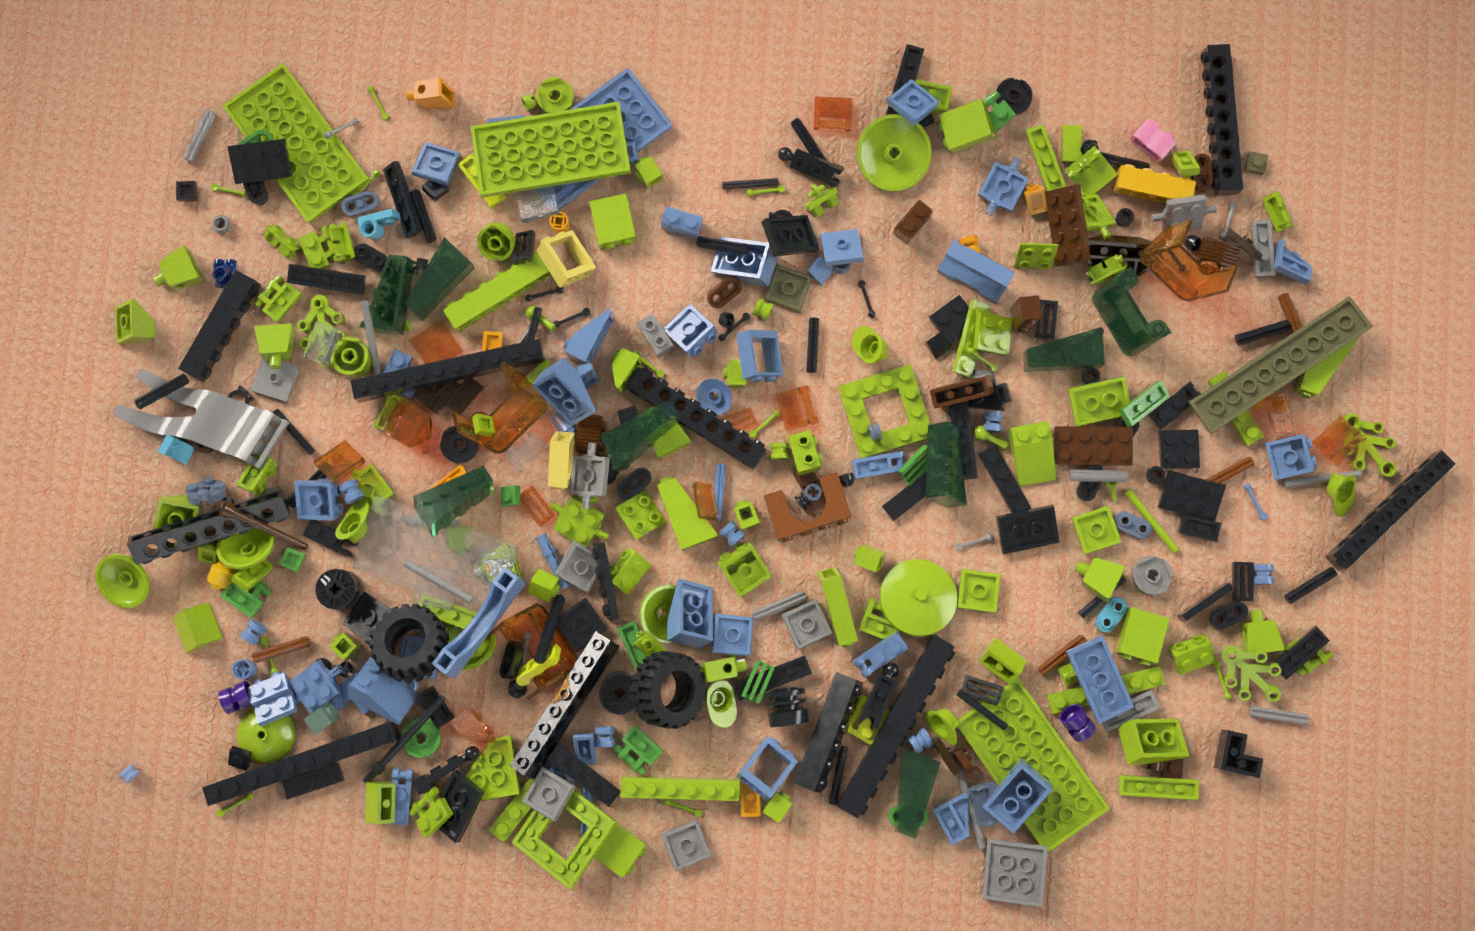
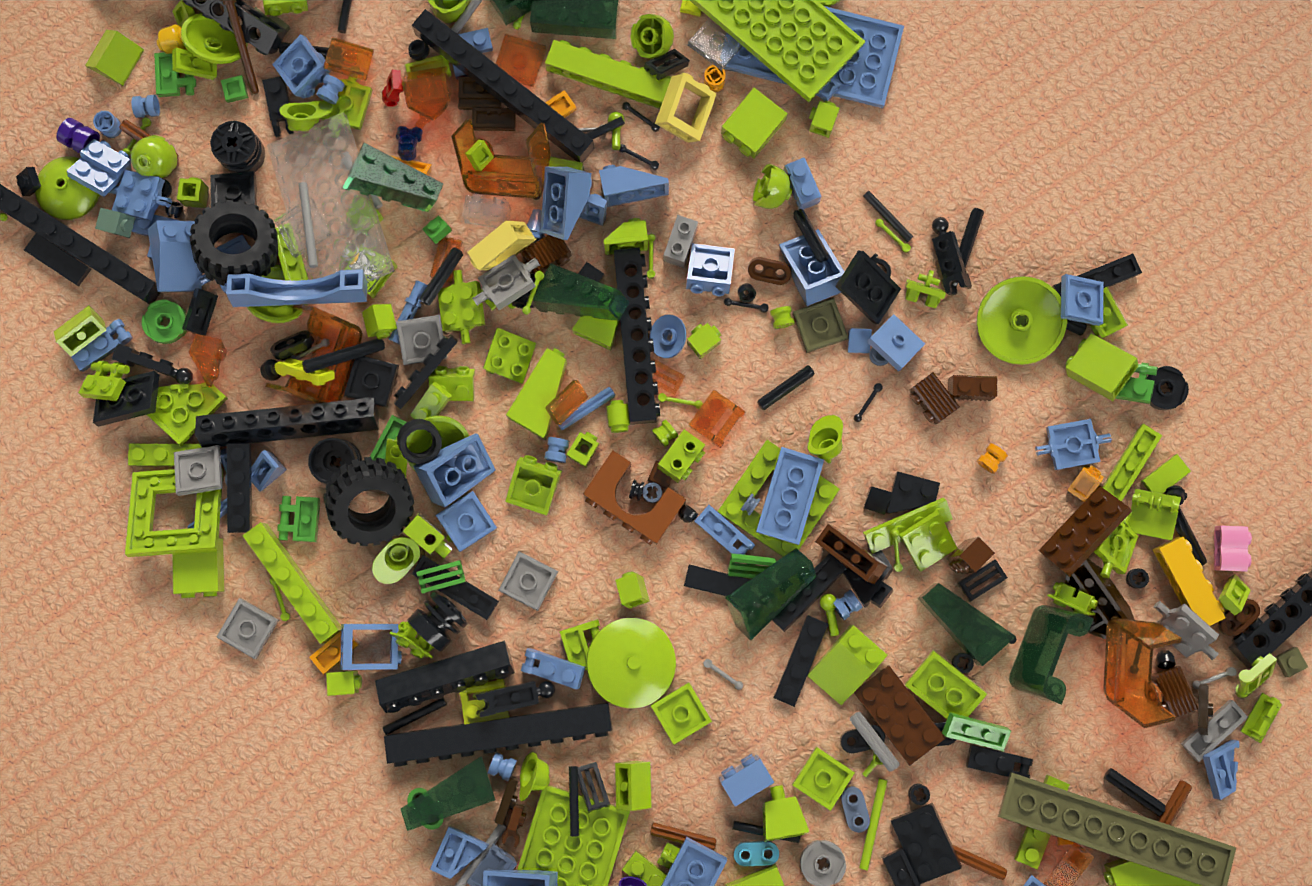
camera: 50 degrees right, 0 degrees up
(296, 654) = (153, 157): none -> lime cylinder
(371, 409) = (418, 50): none -> black plate
(380, 765) = (112, 305): black bar -> none
(386, 447) = (394, 86): none -> red plate
(431, 467) = (408, 141): none -> clear blue plate
(454, 454) = (436, 155): black plate -> none
(547, 518) = (441, 276): none -> black axle
(603, 450) = (539, 276): none -> lime hinge
(606, 741) = (284, 480): medium blue wheel -> none
(631, 595) = (432, 402): none -> lime plate
(633, 482) = (534, 328): black plate -> none
(667, 618) = (430, 453): none -> black tyre
(668, 244) = (773, 188): none -> lime cylinder
(742, 474) = (618, 416): none -> lime brick
(770, 352) = (747, 357): medium blue window -> none
(779, 605) = (526, 543): light grey axle -> none
(786, 734) = (406, 639): none -> lime hinge
(832, 108) = (1018, 235): clear orange plate -> none
(837, 606) = (565, 595): lime slope -> none
(890, 400) = (790, 496): none -> medium blue plate
(899, 252) = (933, 398): none -> reddish brown brick
(975, 271) = (972, 480): medium blue piece -> none
(1027, 529) = (773, 714): black plate -> none
(1035, 255) = (1032, 524): lime hinge -> none
(1057, 581) = (745, 779): none -> medium blue brick
(1178, 449) = (961, 797): black plate -> none
(1248, 196) = (1256, 676): none -> lime plate

